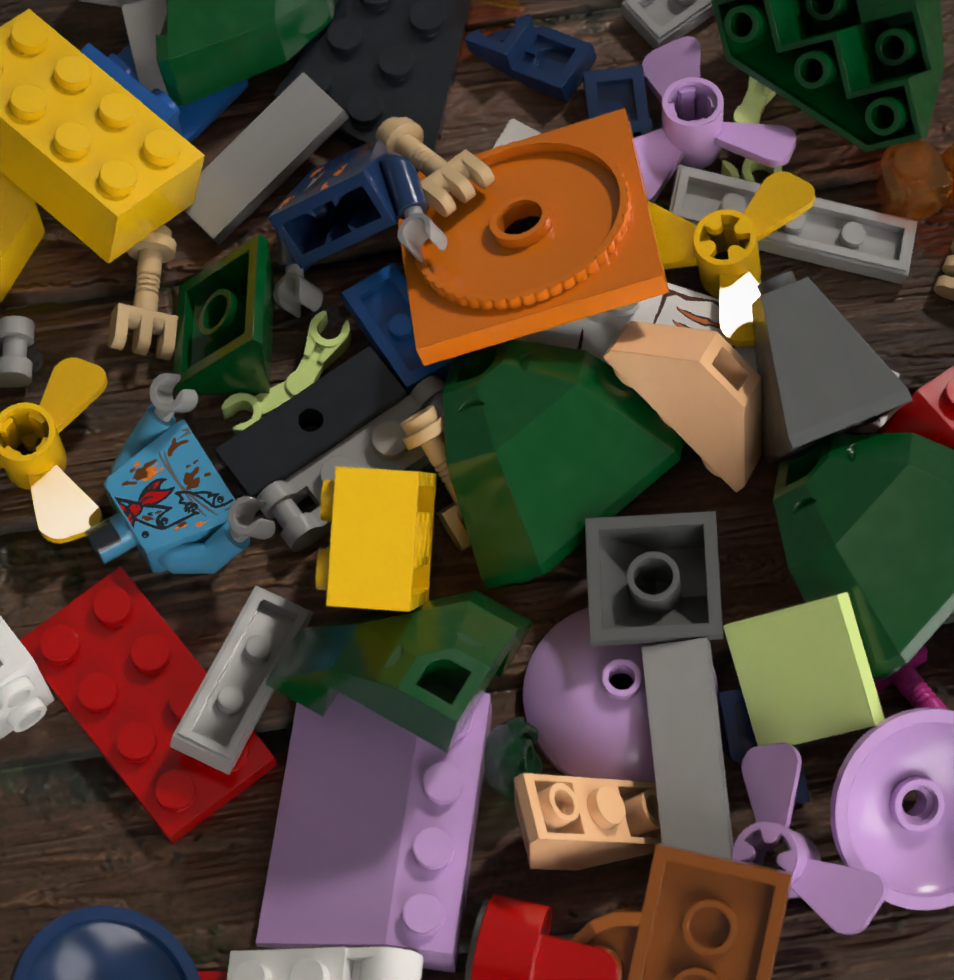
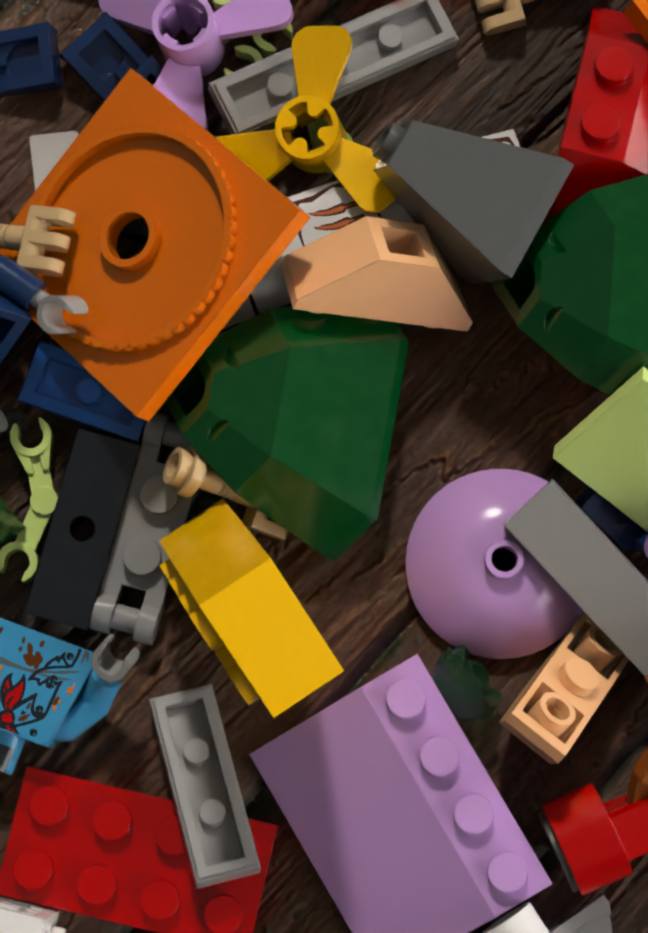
camera: 40 degrees left, 15 degrees up
(408, 666) = (377, 699): dark green brick -> none
(653, 578) = (470, 461): dark grey slope -> none

